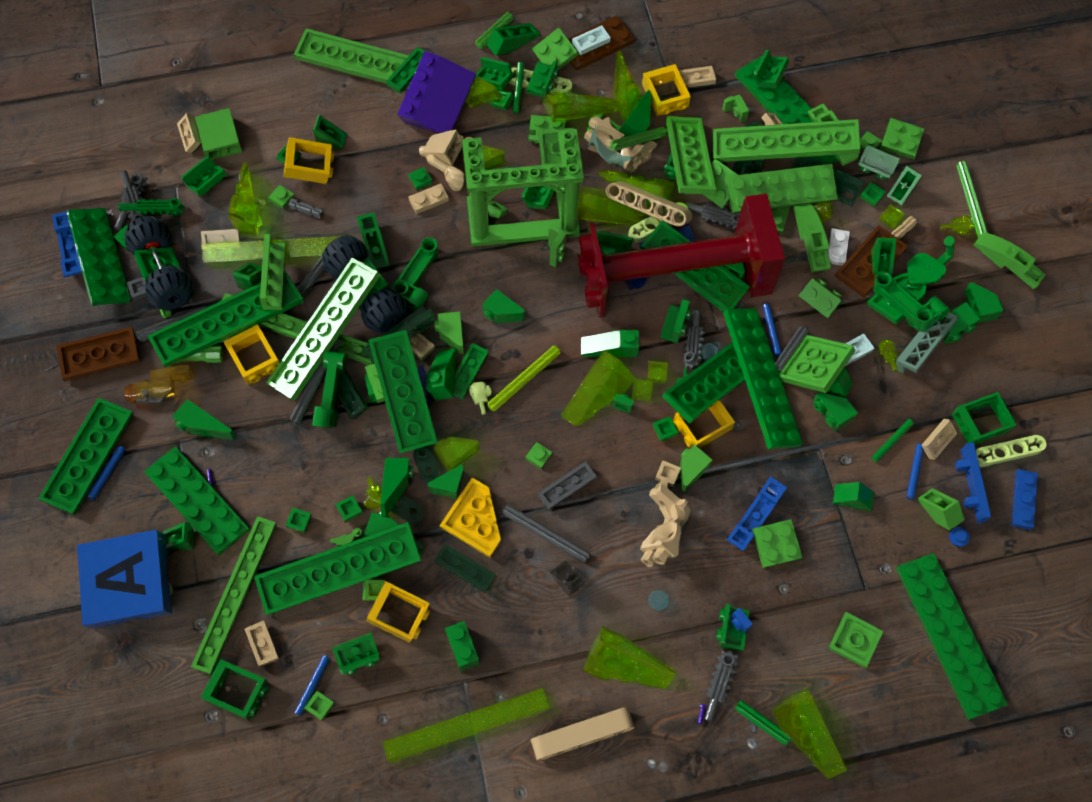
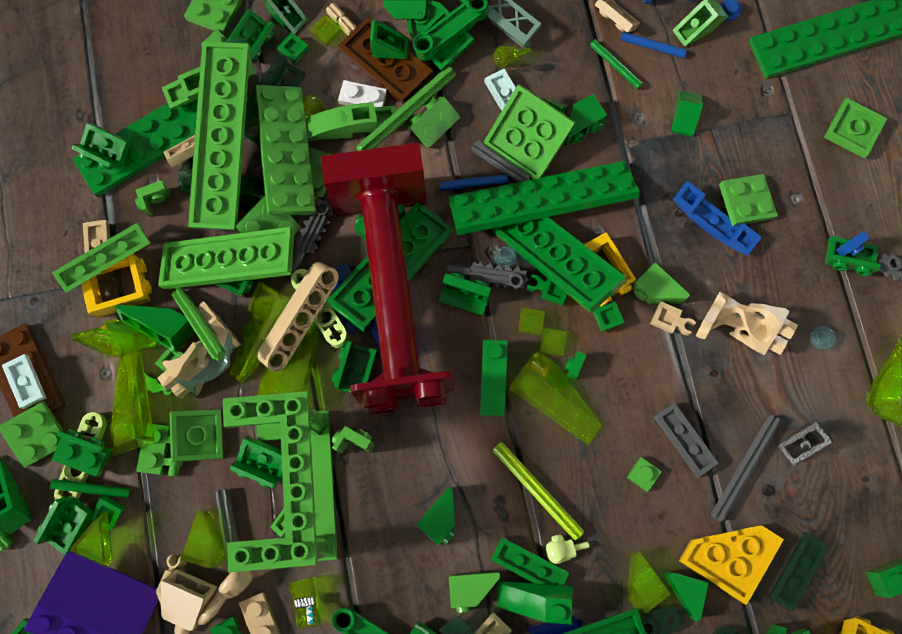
camera: 85 degrees left, 10 degrees up
(441, 224) = (305, 602): none -> clear neon green leg
(685, 76) = (101, 257): none -> bright green fence
(826, 275) = (407, 110): none -> bright green axle

